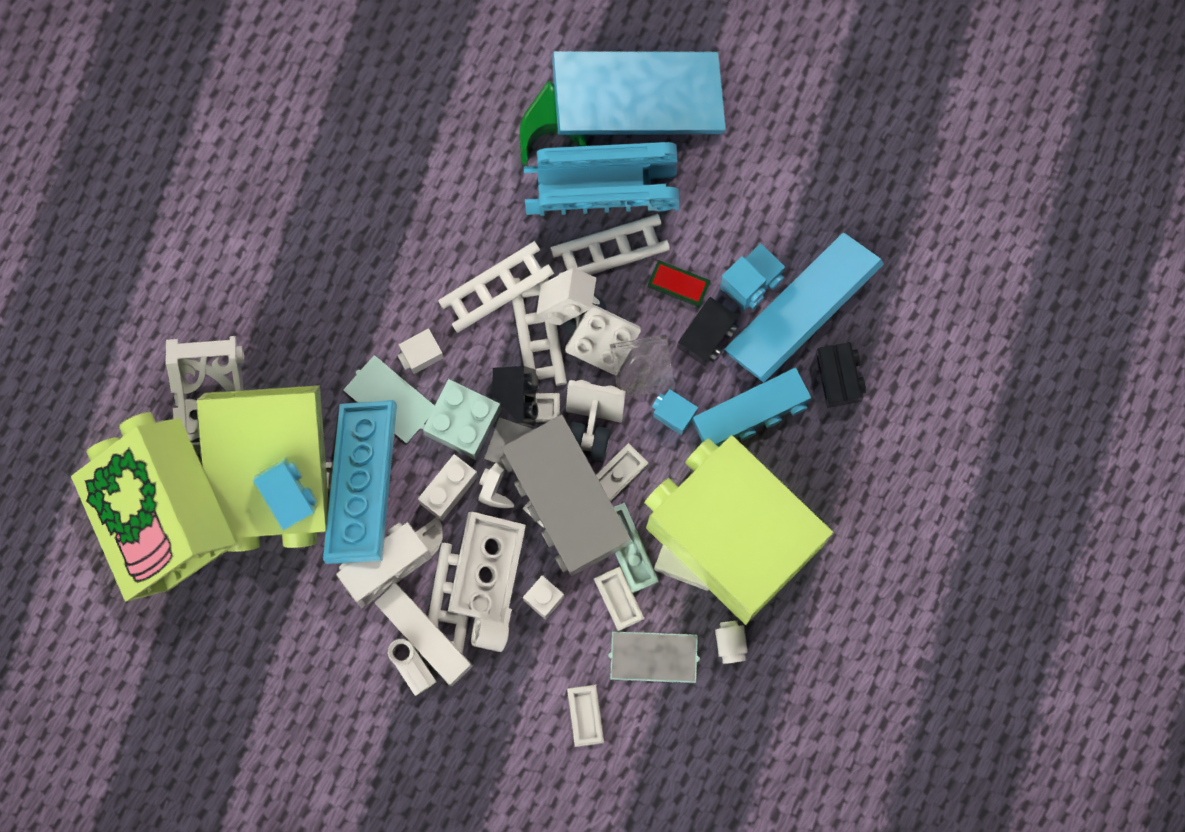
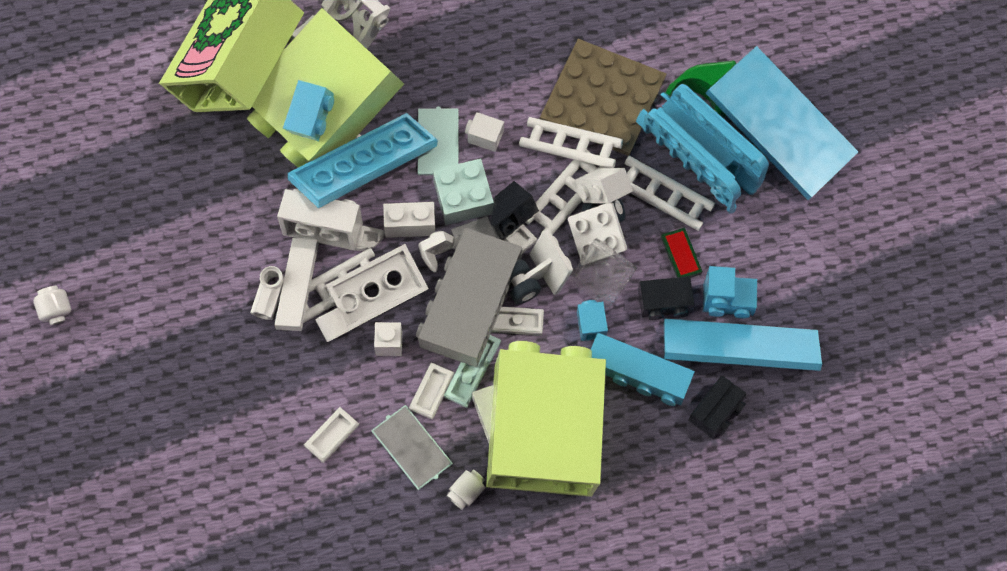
camera: 45 degrees right, 10 degrees down
(472, 218) = (603, 94): none -> dark tan plate

